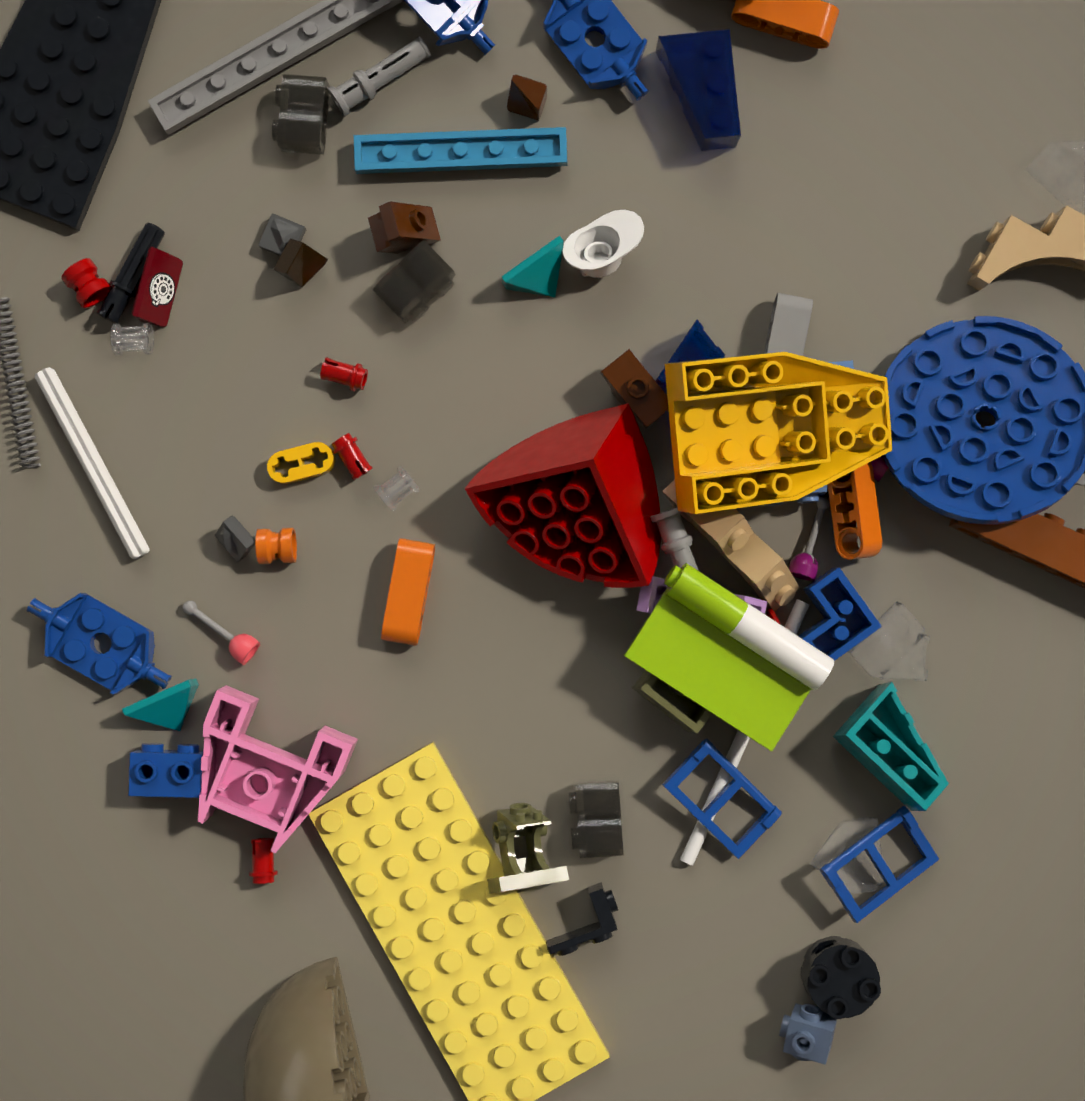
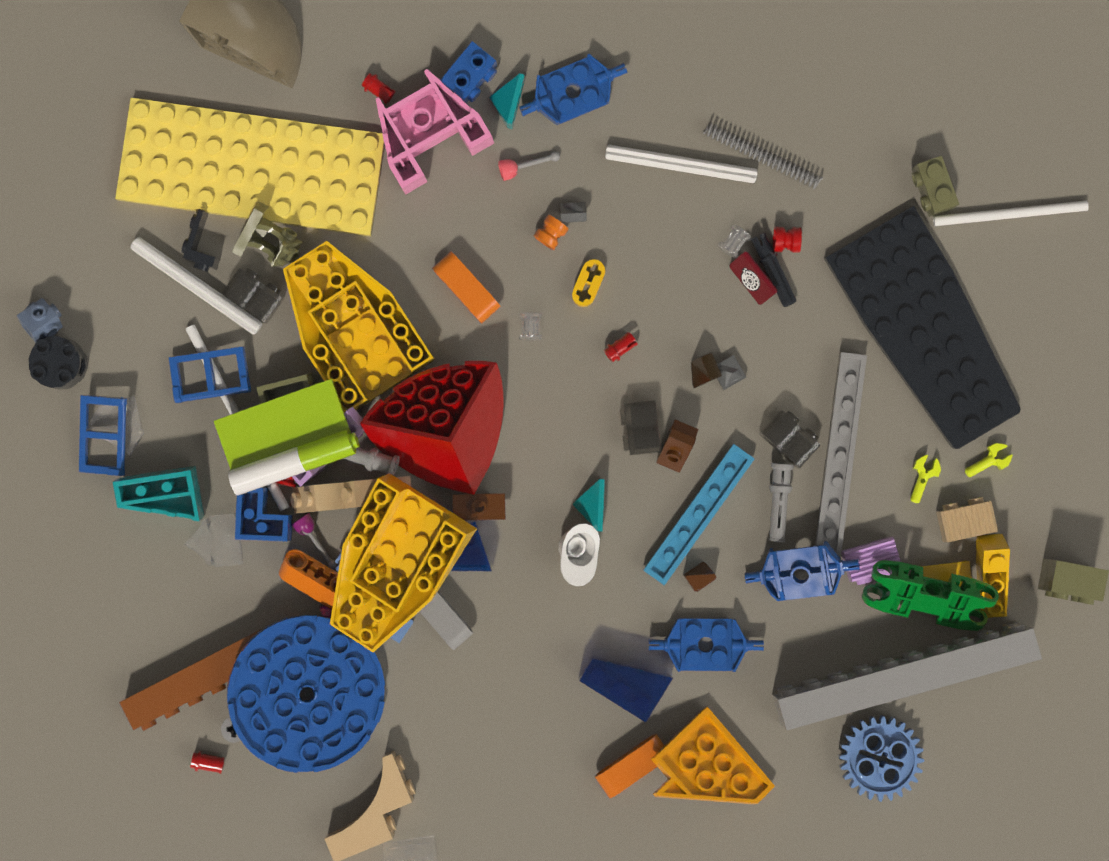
camera: 125 degrees right, 0 degrees up
(350, 455) = (571, 315): red pin -> none
(548, 683) = (352, 326): none -> yellow wedge
(636, 891) = (196, 285): none -> white axle

